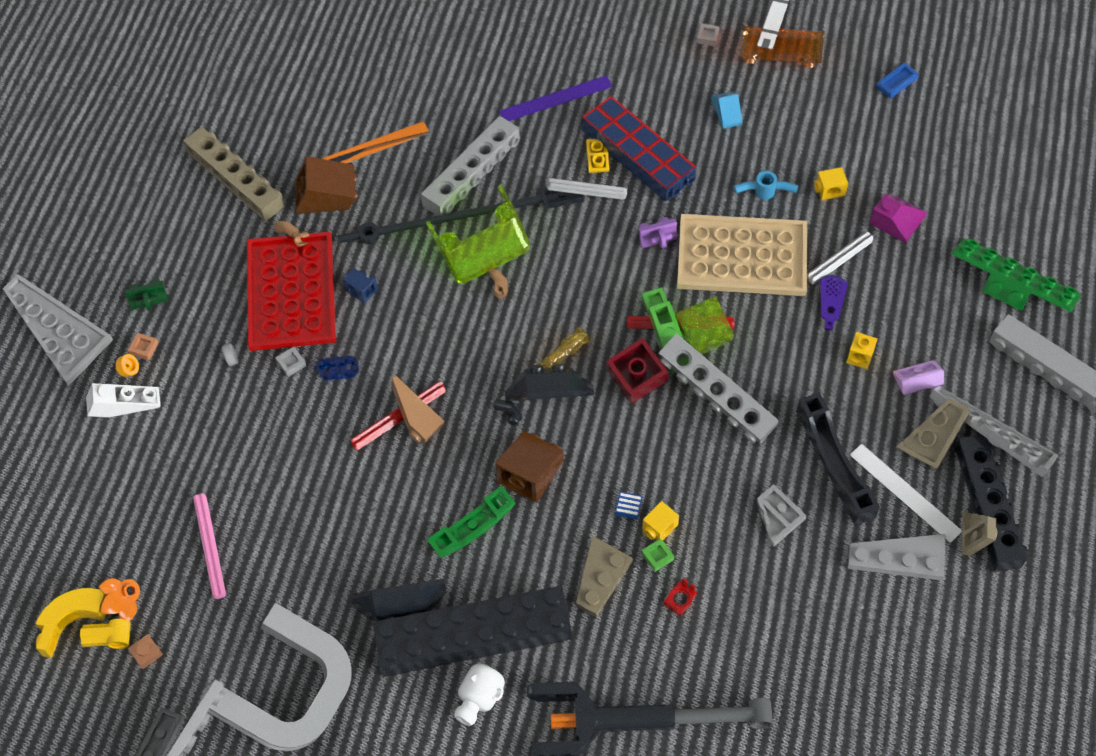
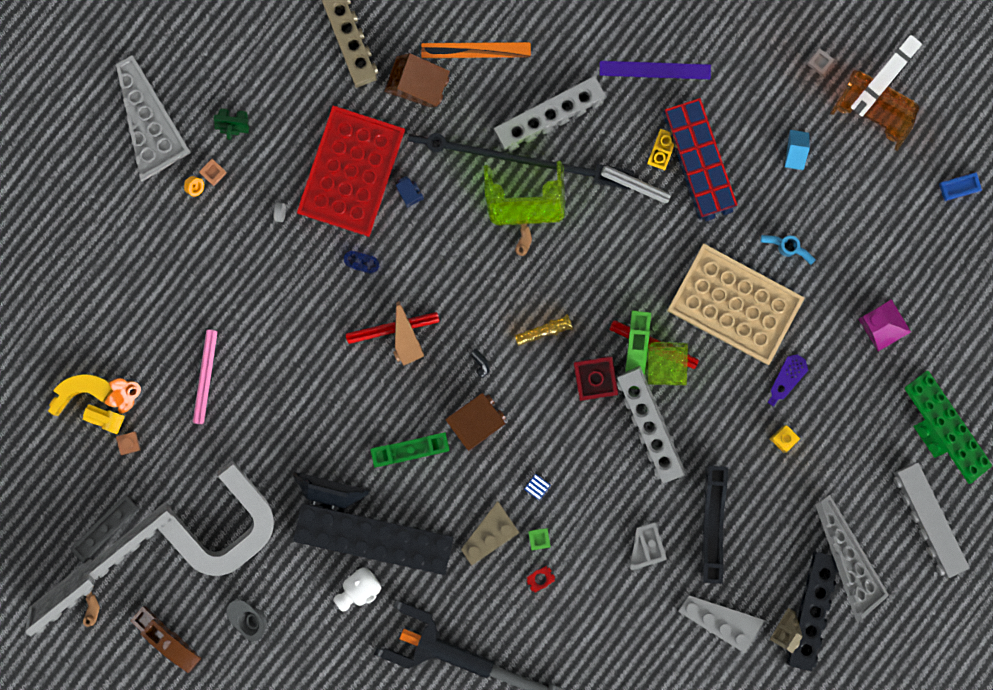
camera: 15 degrees right, 25 degrees up
(117, 400) = (180, 216): white slope -> none
(286, 227) = (367, 106): medium nougat arm -> none
(290, 361) = (326, 238): light grey tile -> none
(548, 383) = (520, 360): black wedge -> none
(658, 233) = (674, 254): medium lavender hips -> none
(660, 522) = (552, 514): yellow brick -> none
(831, 183) = (844, 269): yellow brick -> none
(839, 258) = (814, 342): axle -> none
(906, 493) = (754, 570): white sticker -> none
(919, 377) = (819, 478): lavender slope -> none
(936, 434) = (801, 540): dark tan wing -> none

